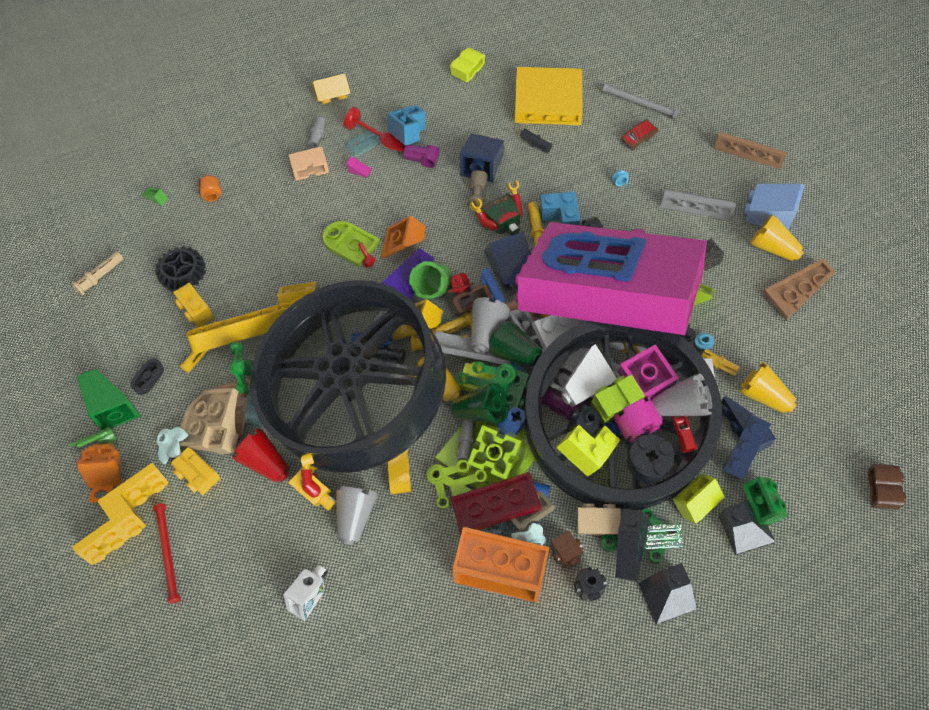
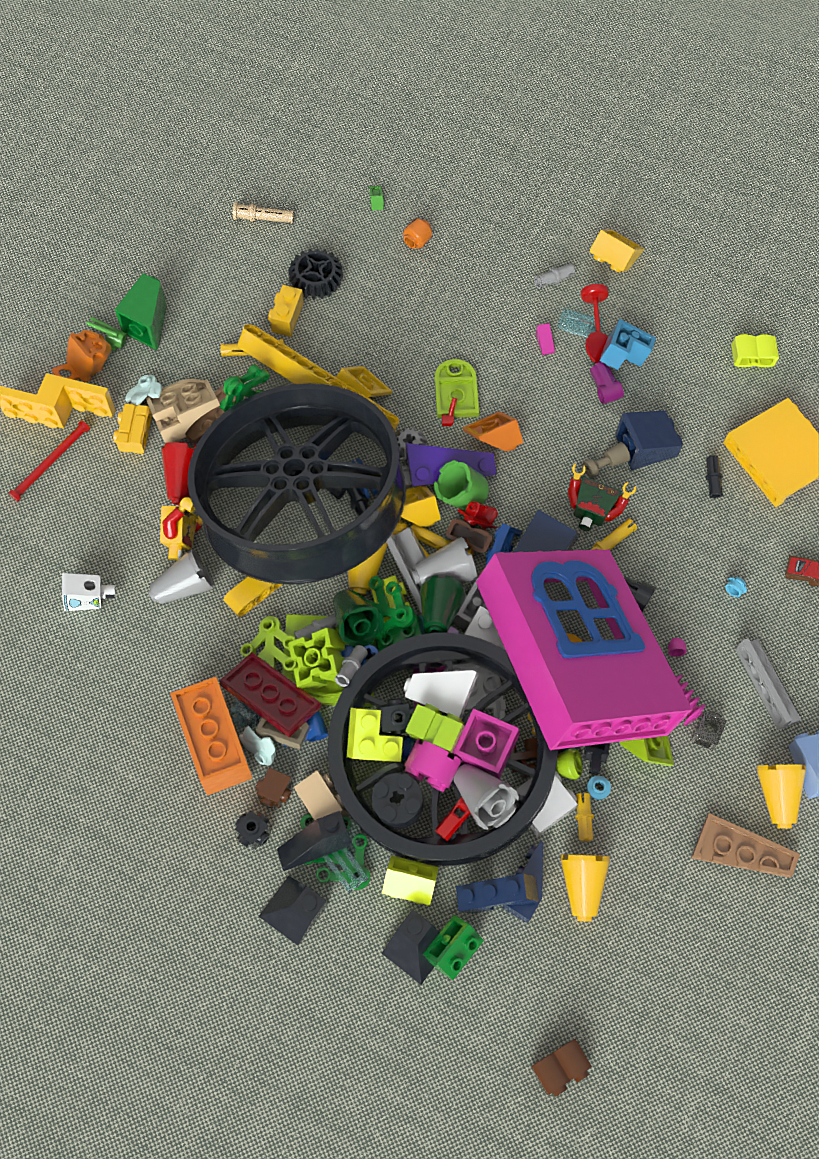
camera: 50 degrees right, 5 degrees up
(147, 377) = (193, 327): black plate -> none
(308, 163) = (513, 293): light nougat brick -> none
(521, 429) = (351, 665): none -> light grey pin
(560, 207) = (648, 553): dark azure brick -> none

